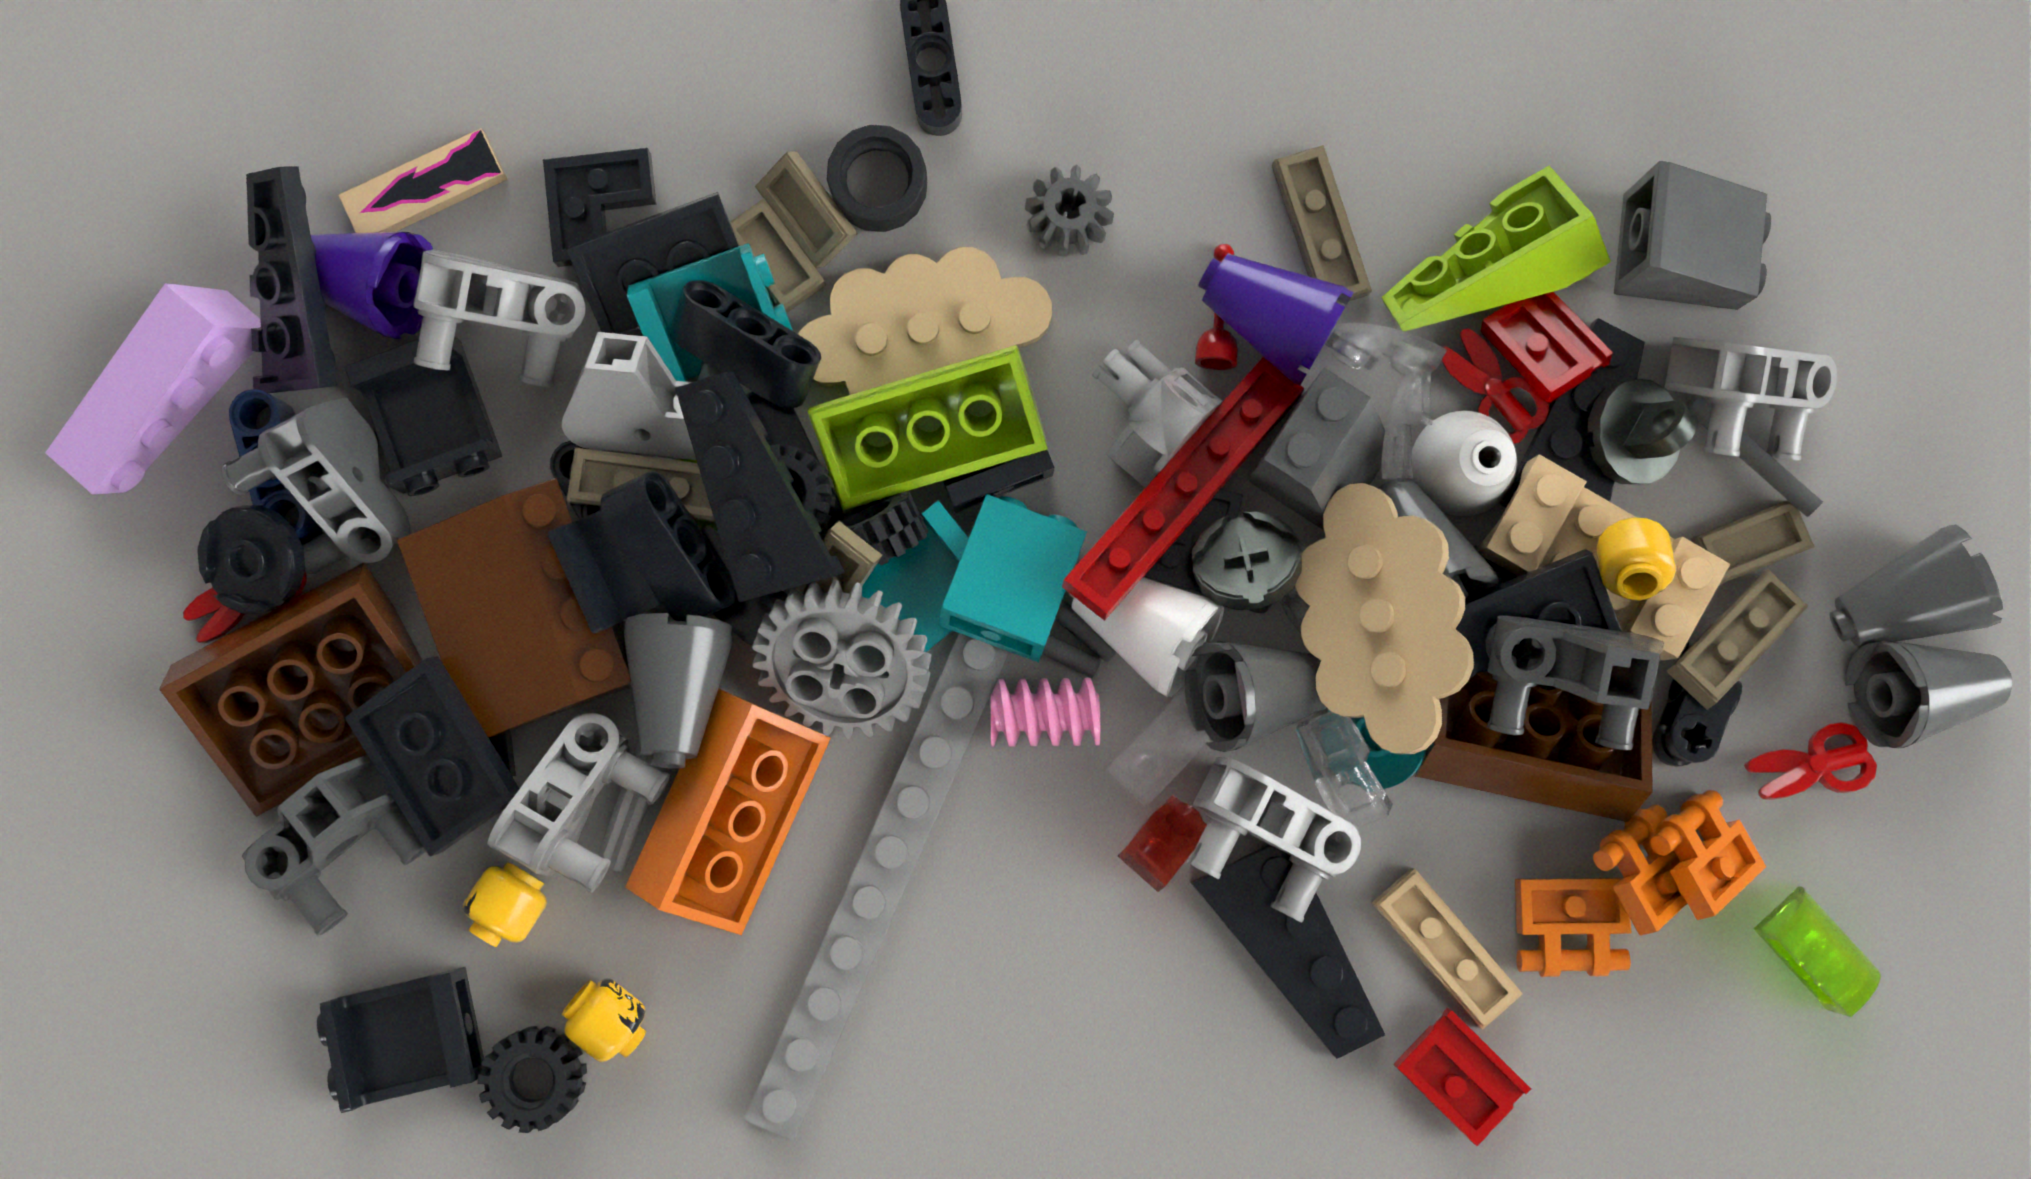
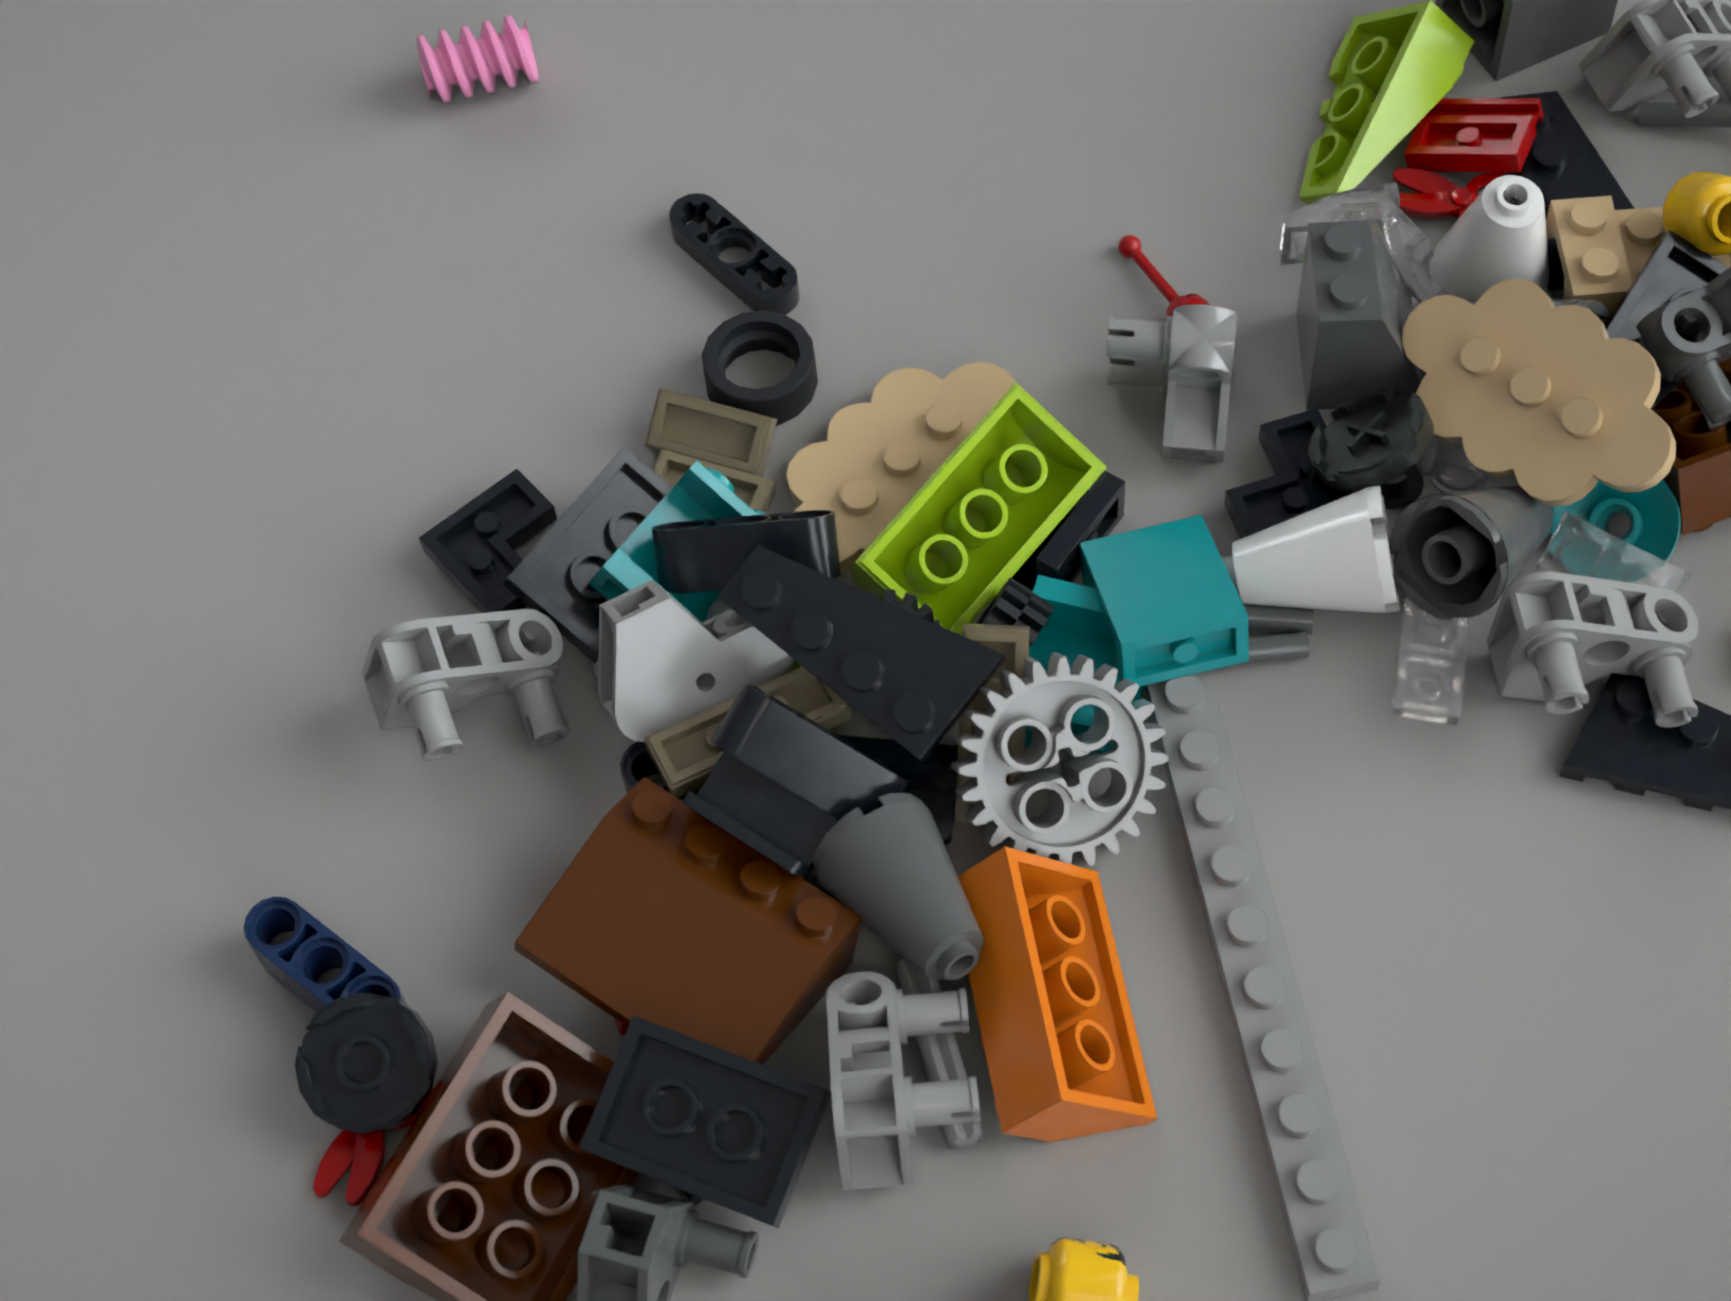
camera: 25 degrees left, 25 degrees down
(154, 386) = (144, 974): lavender wedge -> none
(287, 284) = (257, 805): black wing -> none
(340, 455) = (412, 929): dark grey piece -> none
(372, 278) = (301, 739): dark purple cone -> none
(424, 185) = (306, 642): tile -> none
(425, 417) = (452, 835): black panel -> none
(504, 904) = (884, 1240): yellow head -> none
(1045, 712) = (1290, 693): bright pink piece -> none
(1079, 193) = (962, 288): dark grey gear -> none
(1164, 842) = (1505, 737): clear red bracket -> none
(1182, 489) = (1259, 429): red plate -> none
(1274, 310) = (1220, 242): dark purple cone -> none
(1320, 220) = (1199, 177): dark tan tile -> none
(1638, 431) = (1620, 146): pearl dark grey tile -> none

